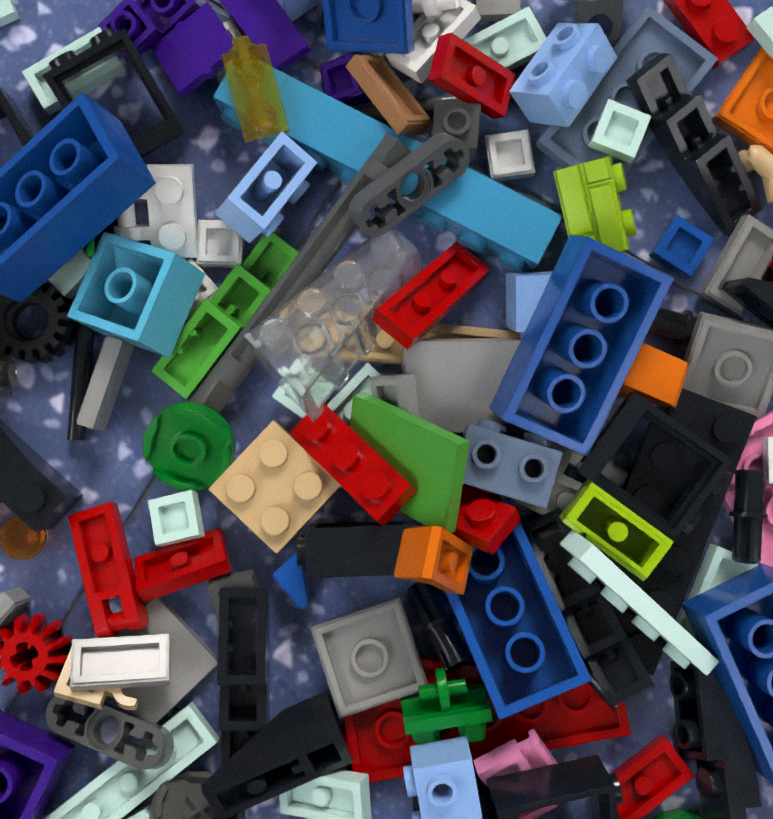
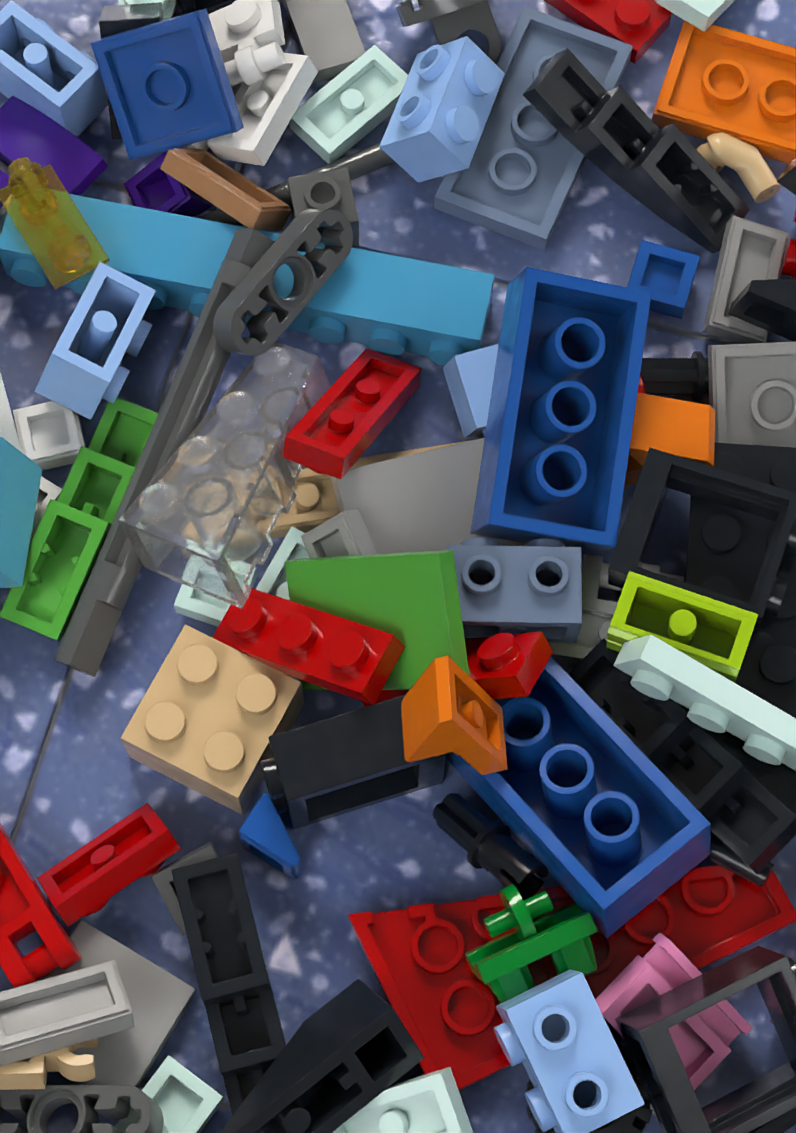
camera: 15 degrees left, 15 degrees down
(176, 518) = (83, 804): light aqua plate -> none
(189, 446) = (76, 700): green tile -> none
(369, 656) = (404, 909): light grey tile -> none
(471, 75) = (326, 137): red plate -> none
(509, 155) = (404, 227): white tile -> none
(593, 202) = (523, 233): lime brick -> none
(619, 131) = (534, 156): light aqua plate -> none

